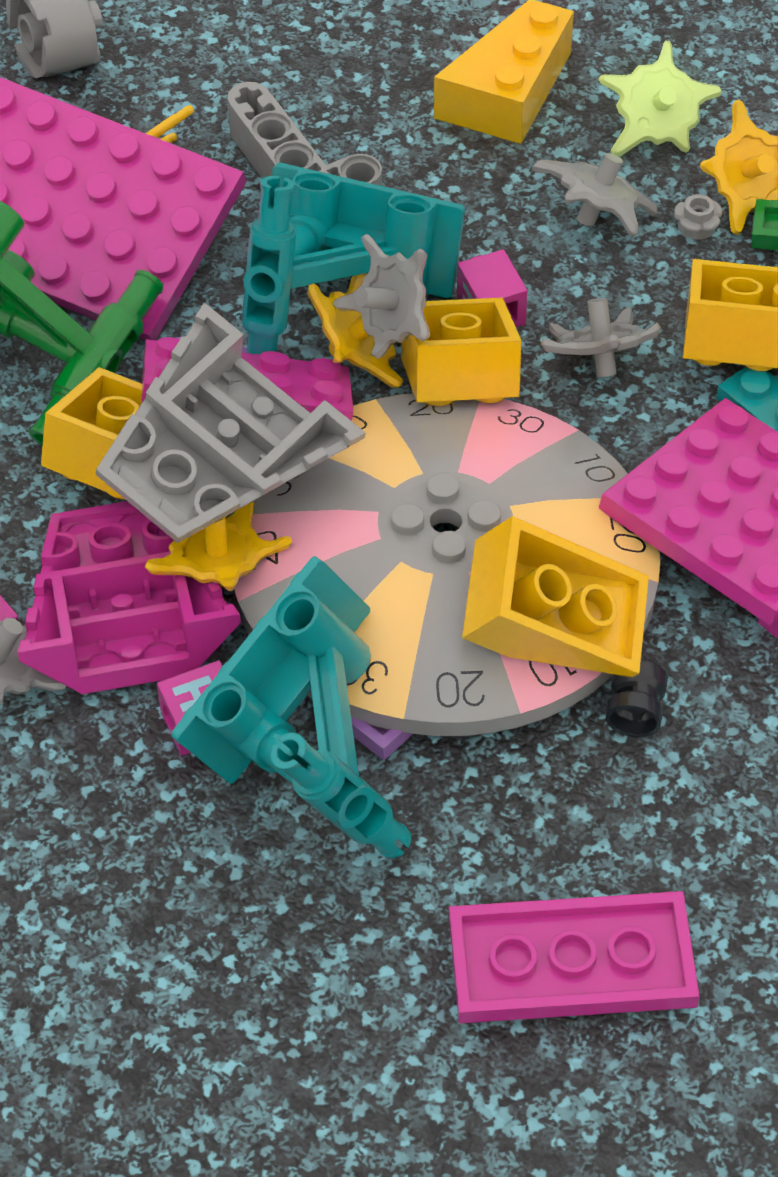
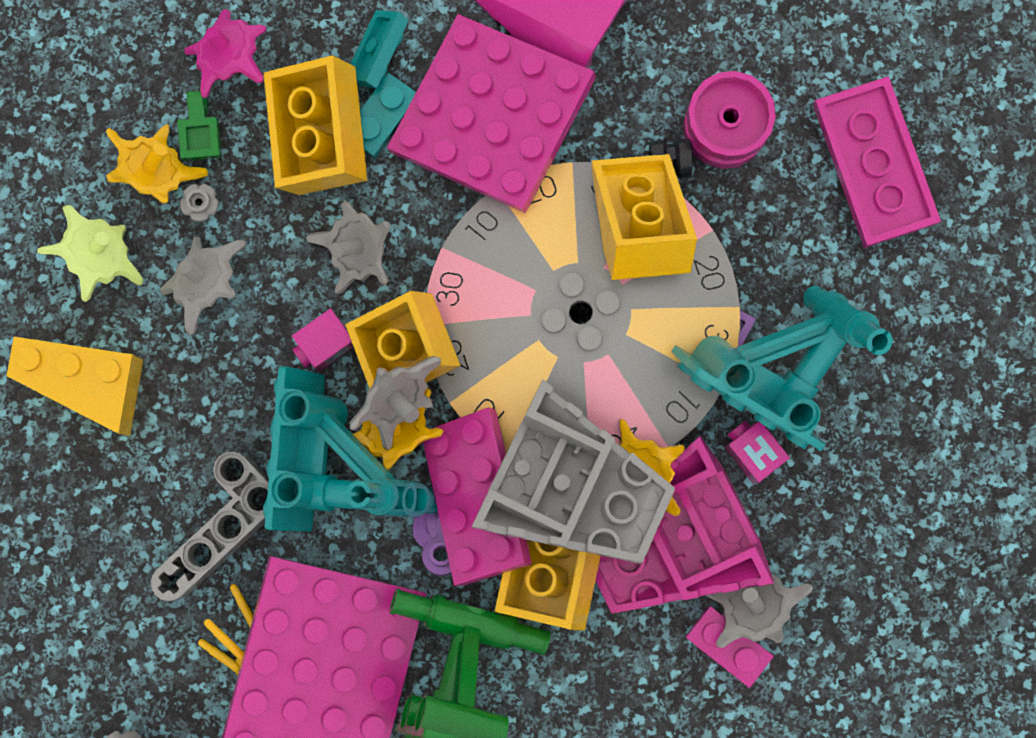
camera: 105 degrees left, 30 degrees up
(675, 767) = (749, 114): none -> dark pink wheel

